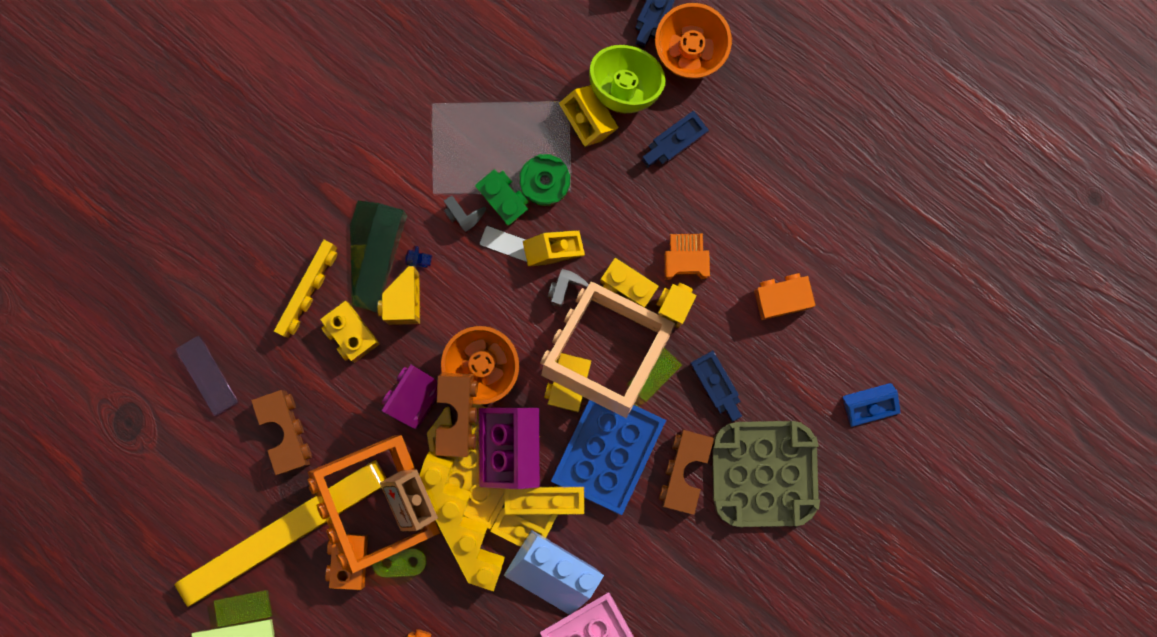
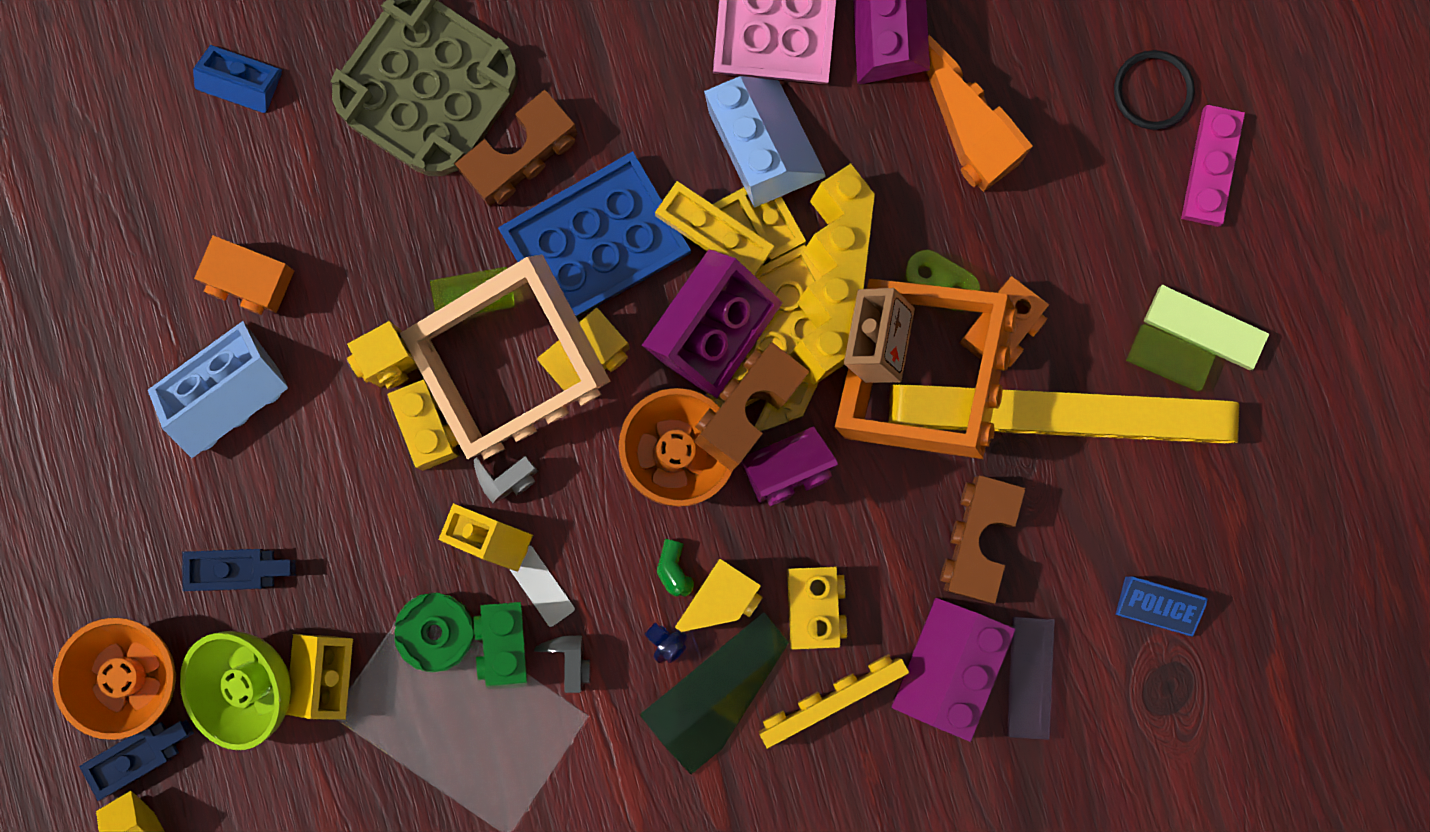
camera: 140 degrees left, 0 degrees up
(160, 463) = (1160, 606): none -> slope
(251, 350) = (953, 669): none -> magenta slope
(442, 298) = (670, 572): none -> green arm
(686, 256) = (327, 411): orange piece -> none
(717, 384) = (404, 228): dark blue hinge -> none
(754, 227) = (216, 390): none -> light blue slope

